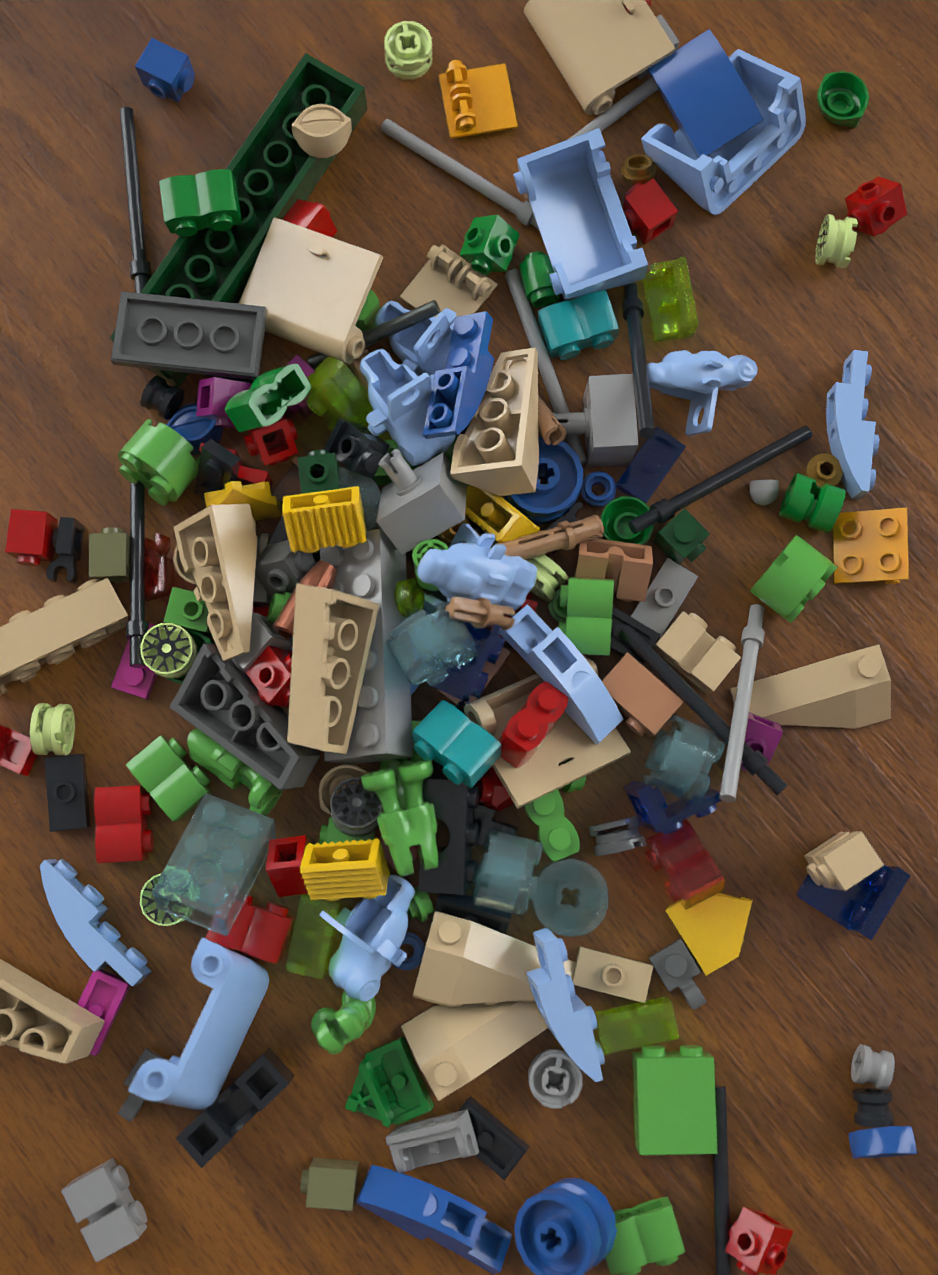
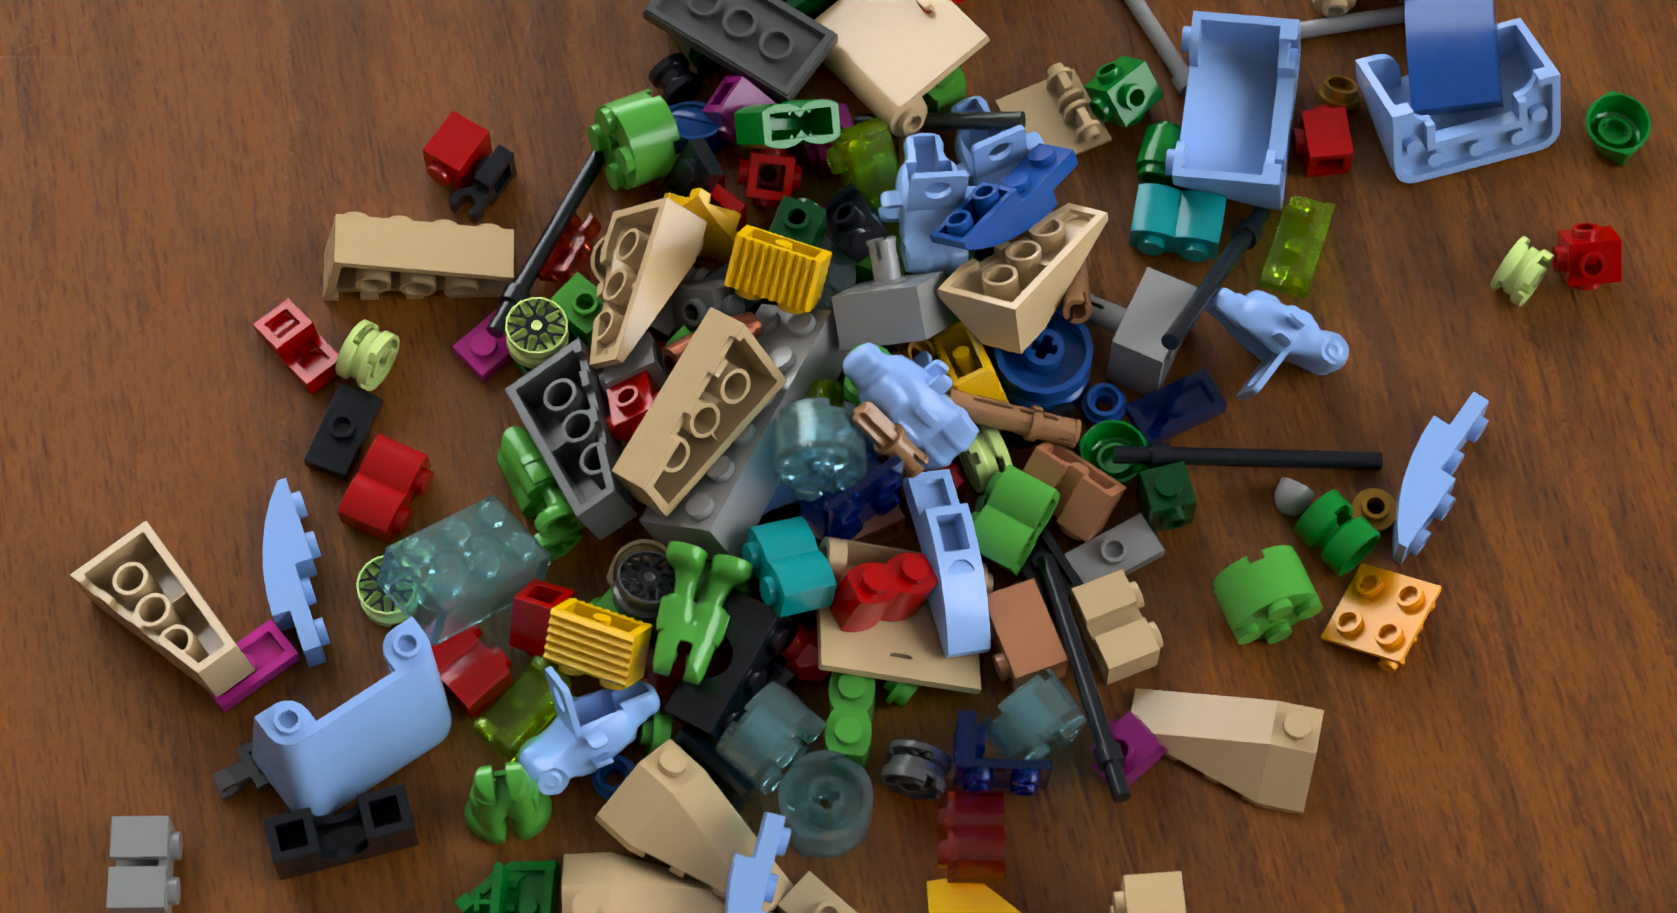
camera: 30 degrees right, 15 degrees down
(109, 555) = (528, 211): olive brick -> none
(169, 777) = (461, 463): bright green brick -> none
(544, 363) = (1117, 245): light grey bar -> none
(752, 641) = (1184, 645): light grey bar -> none

